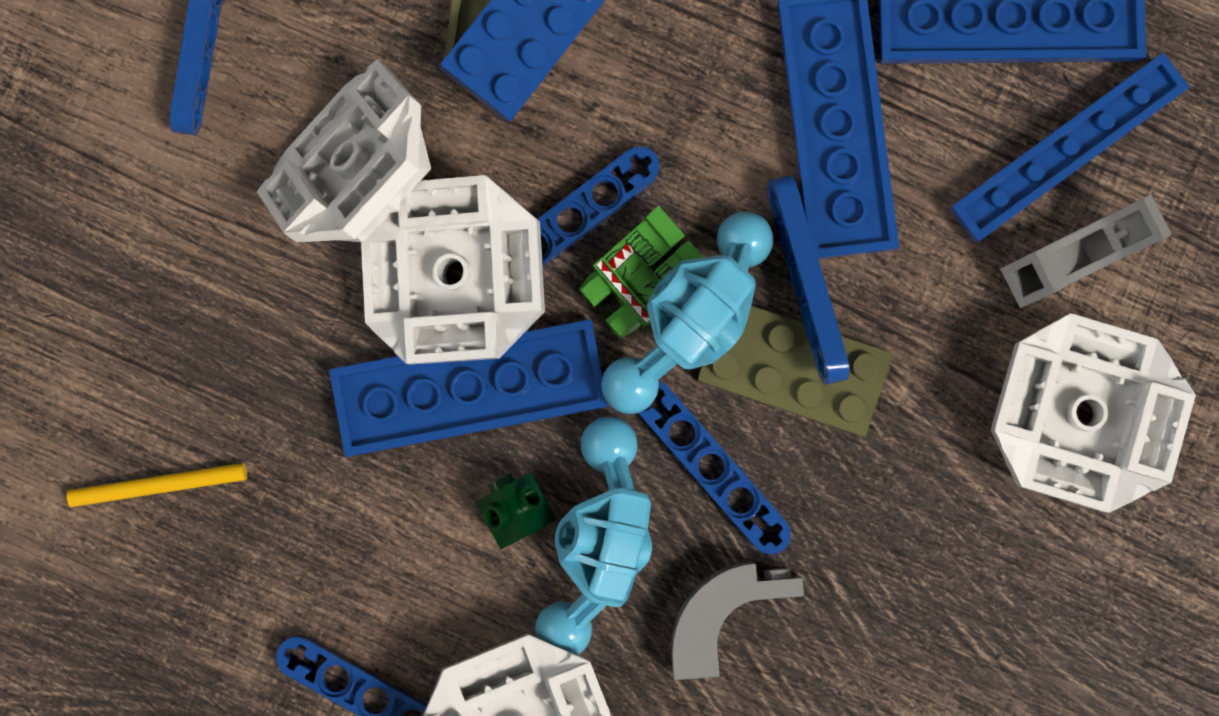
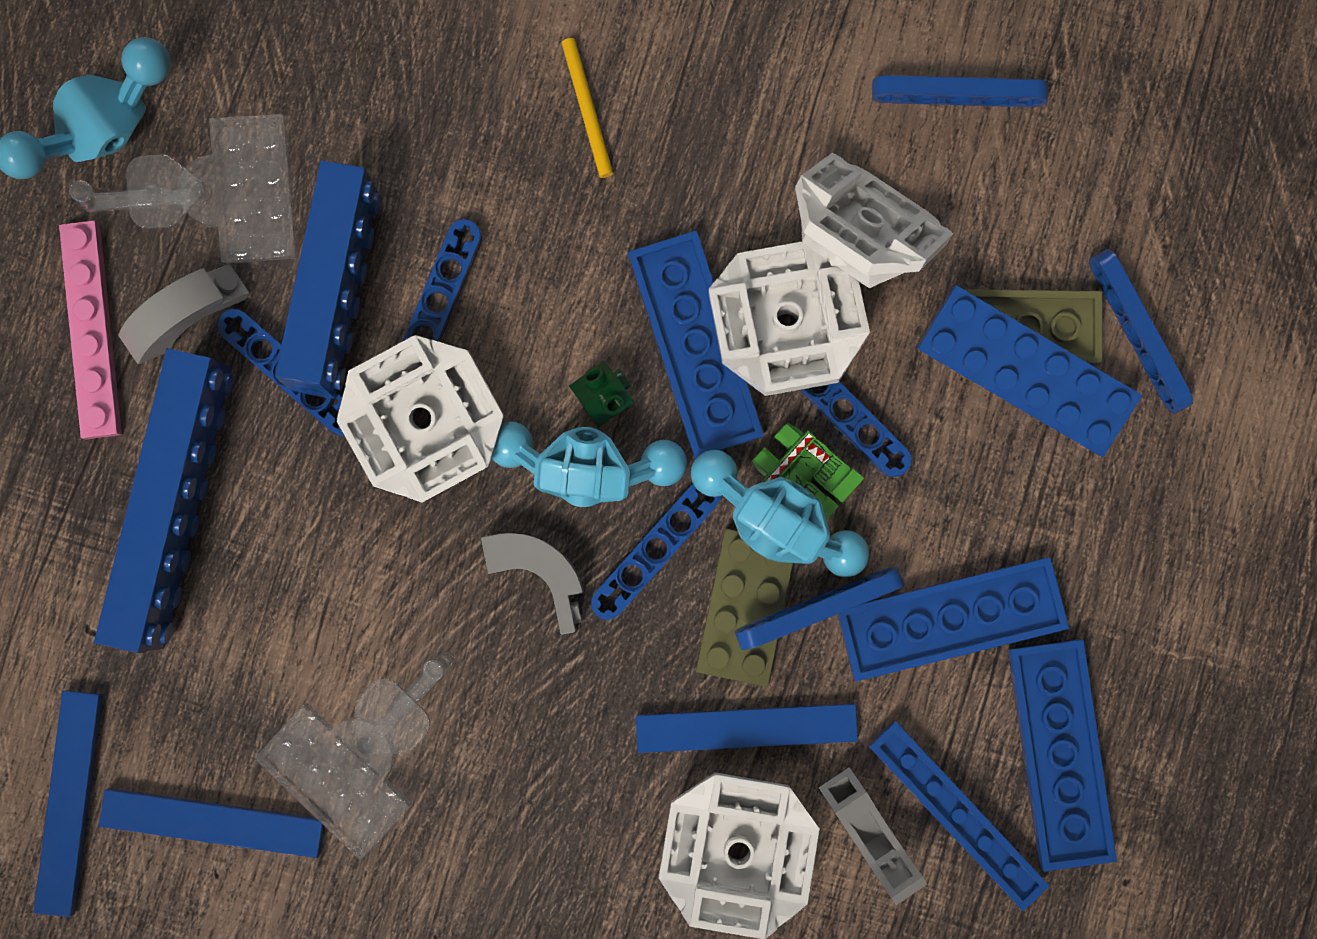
camera: 85 degrees right, 0 degrees up
(938, 385) = (746, 728): none -> blue tile

